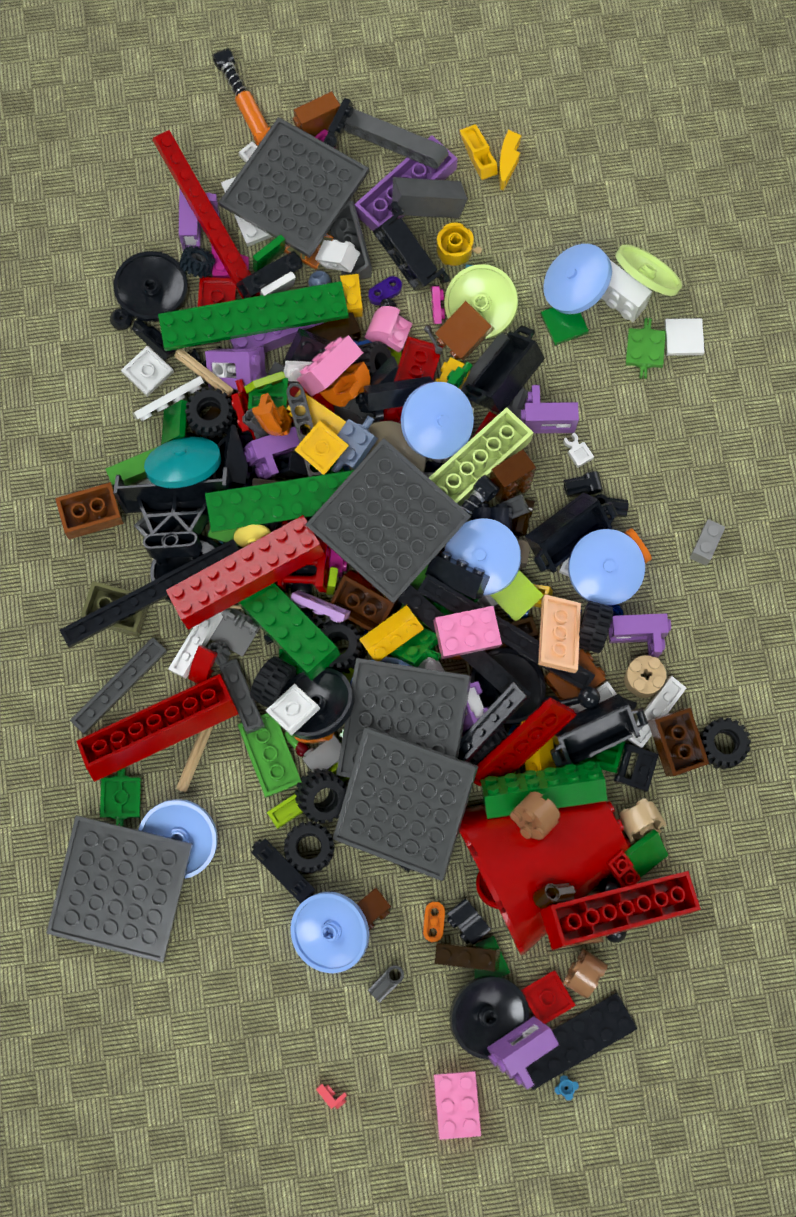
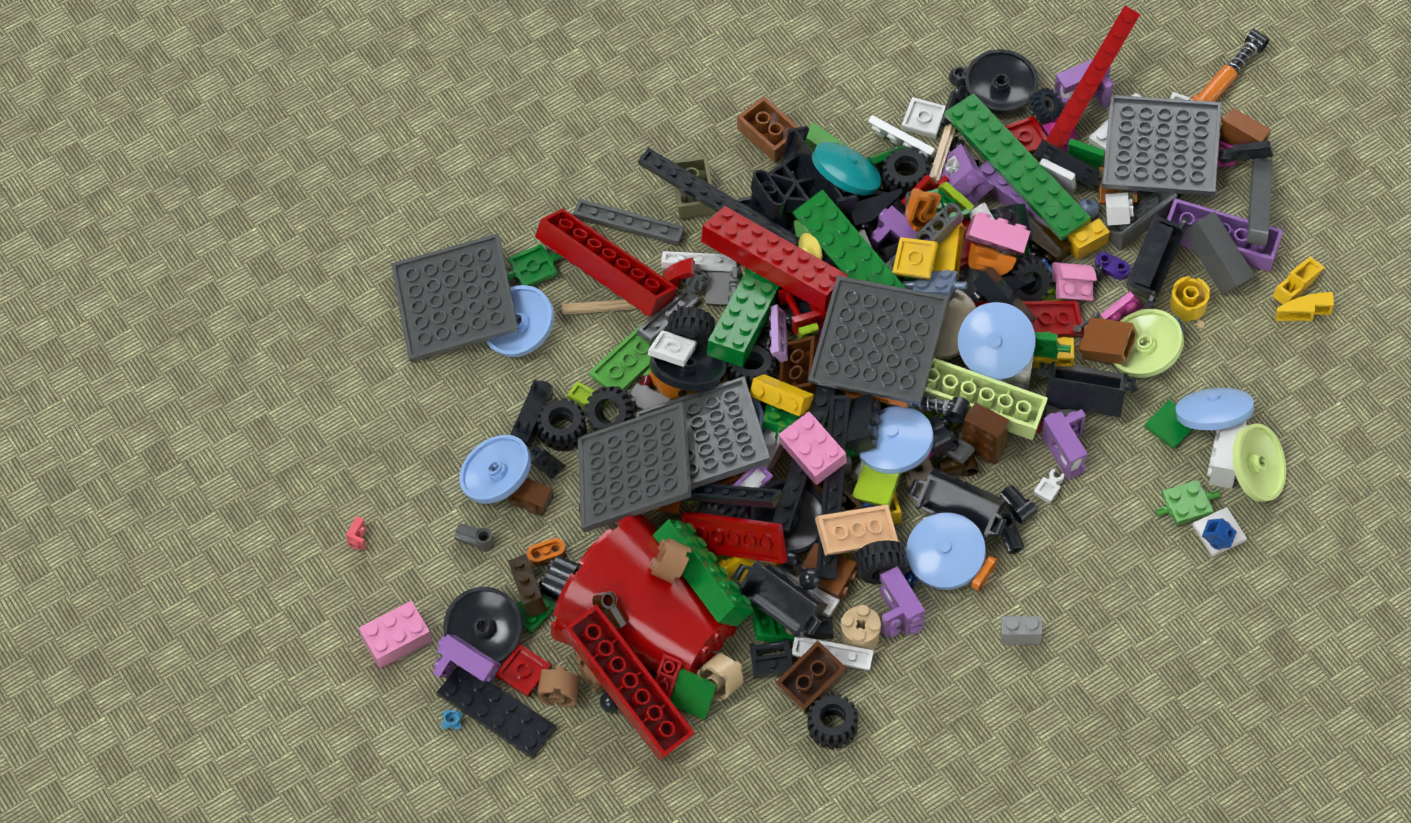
camera: 70 degrees right, 15 degrees down
(345, 880) = (546, 462): none -> black hinge
(696, 336) = (1219, 533): none -> blue brick

